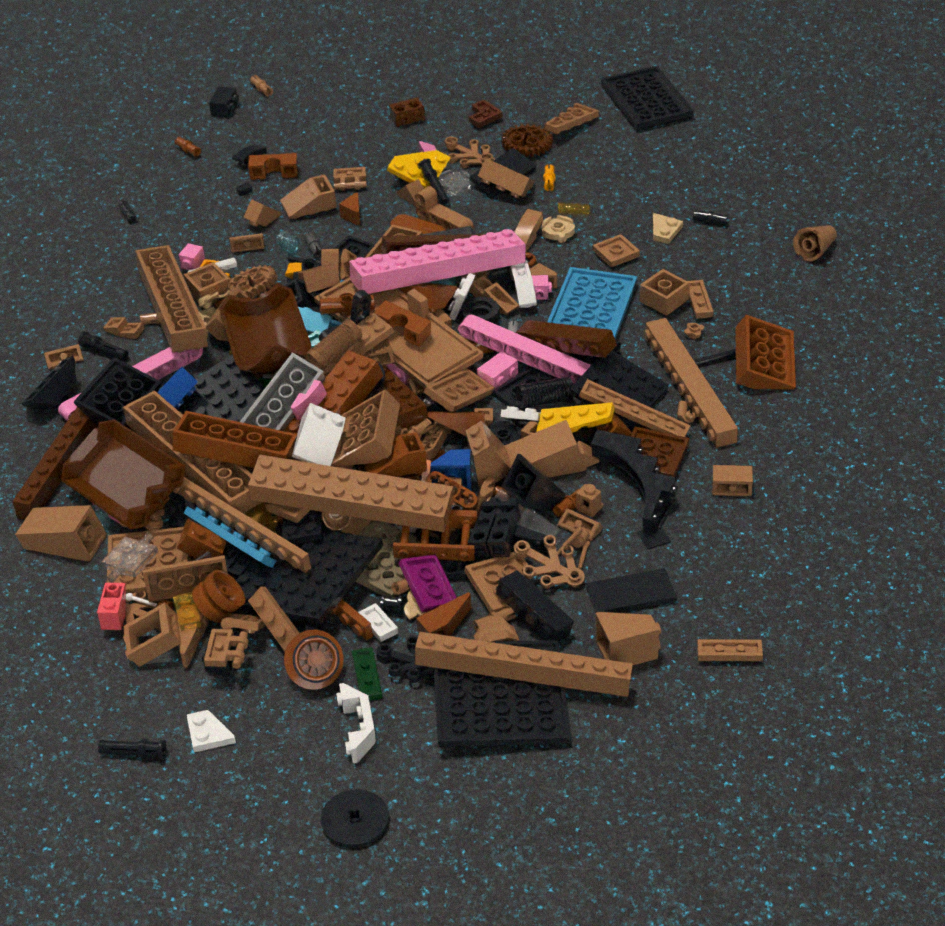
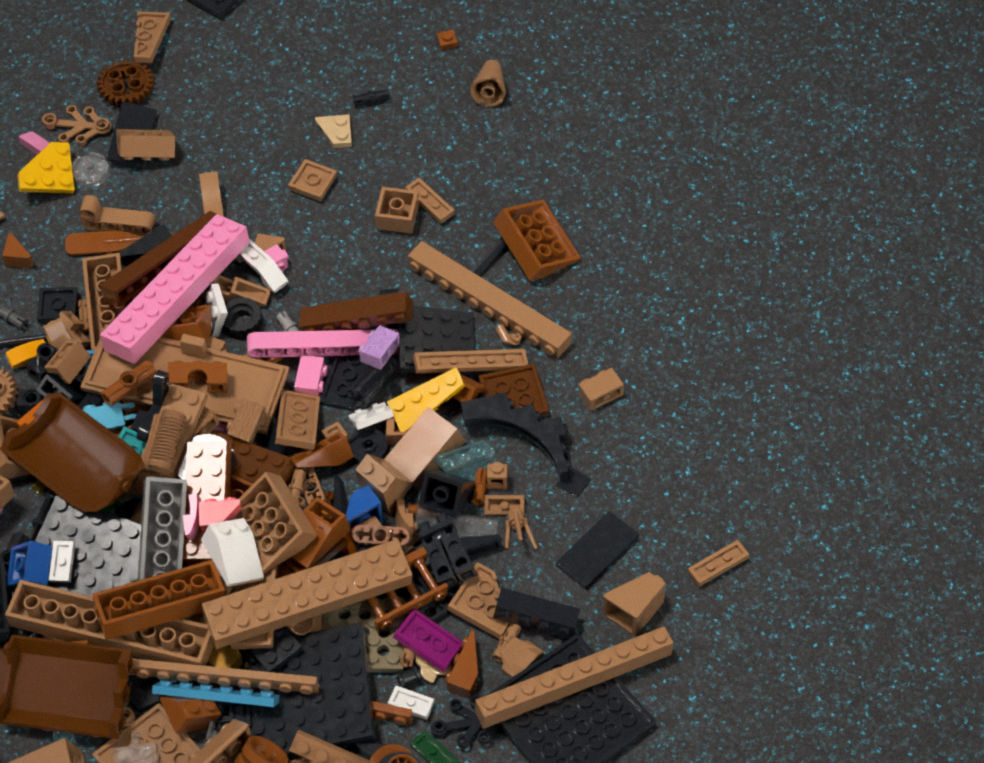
camera: 35 degrees left, 15 degrees up
(198, 397) = (62, 561): none -> white plate
(330, 401) = (218, 511): none -> slope
(409, 191) = (61, 203): medium nougat slope -> none
(415, 368) = (246, 420): none -> medium nougat brick
(431, 176) = (69, 176): black pin -> none
(484, 113) = (57, 66): copper plate -> none
(549, 178) = (181, 119): light orange pin -> none
(550, 565) = (516, 560): medium nougat plant -> none
(558, 228) = (240, 187): tan plate -> none
(563, 366) = (379, 347): none -> lavender brick
(572, 473) = (465, 456): none -> clear light blue plate
(573, 208) = (233, 146): clear yellow axle -> none
(586, 452) = (459, 424): medium nougat slope -> none
(593, 299) = (337, 255): dark azure plate -> none
(693, 330) = (452, 242): medium nougat plate -> none
(807, 205) = (447, 39): none -> dark orange plate

